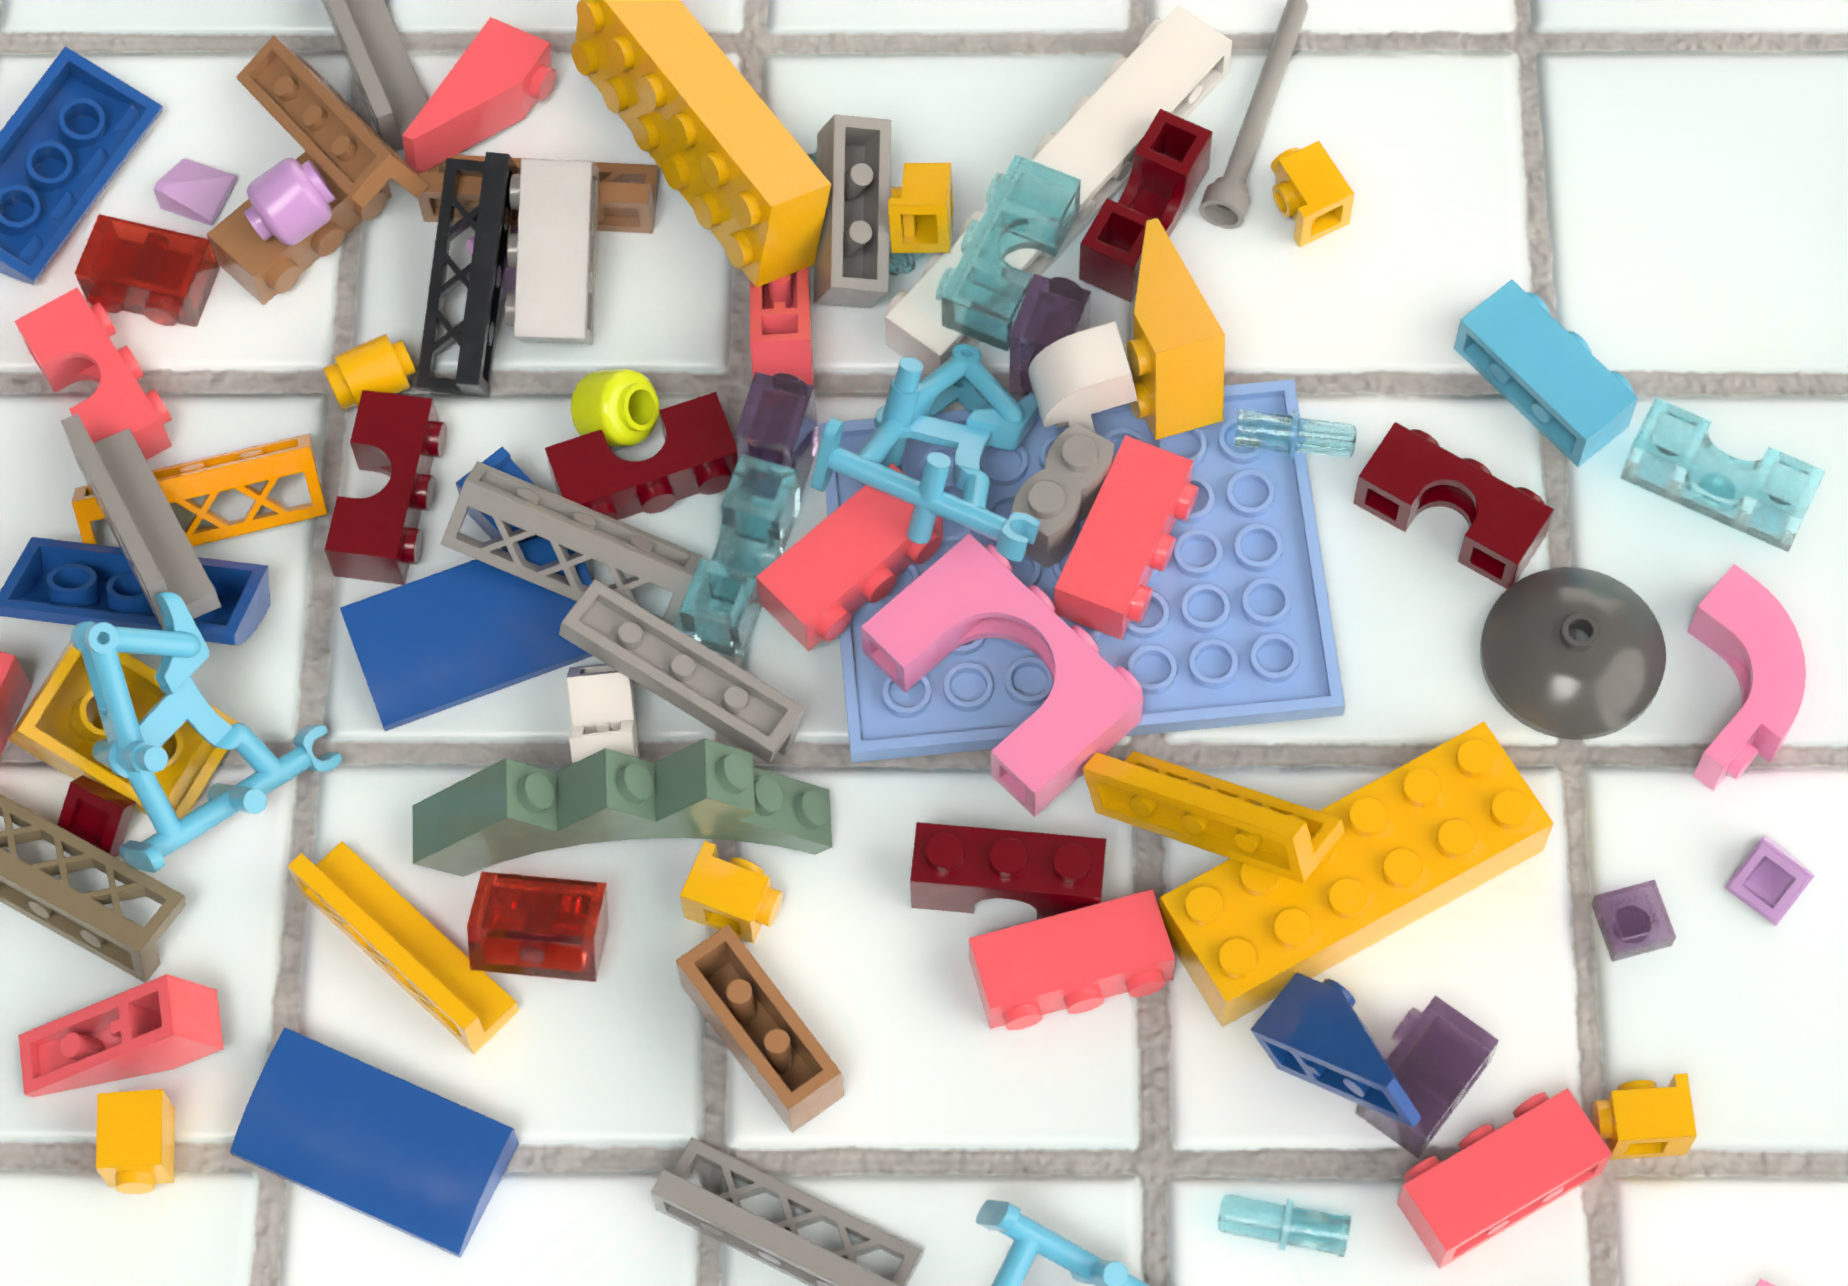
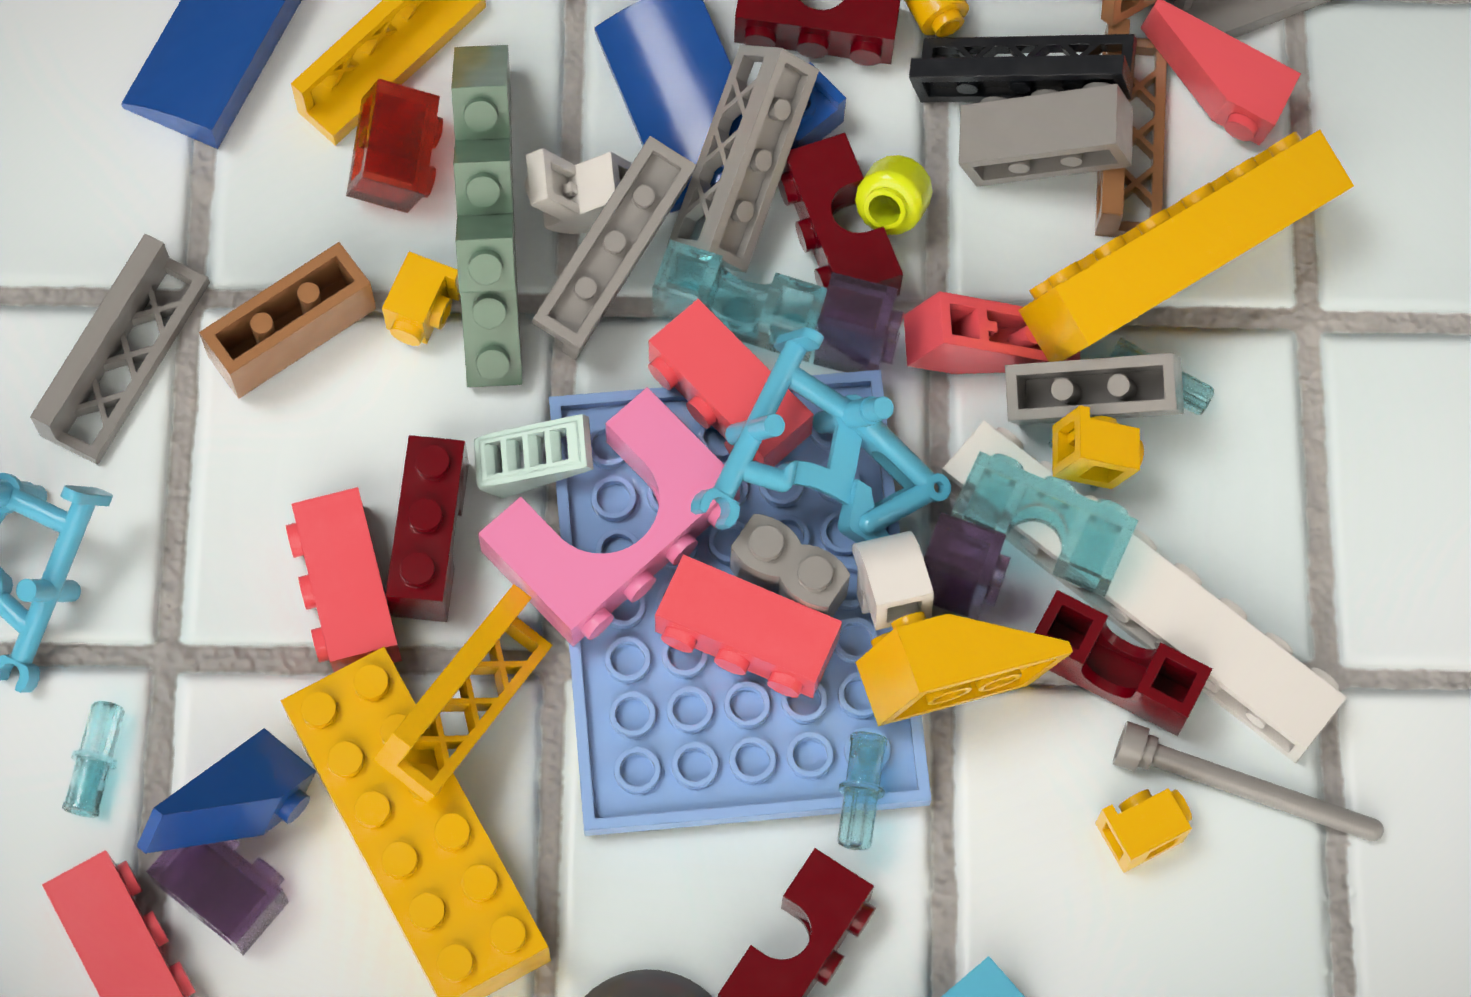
camera: 85 degrees right, 5 degrees up
(919, 705) = (500, 461): none -> light aqua slope

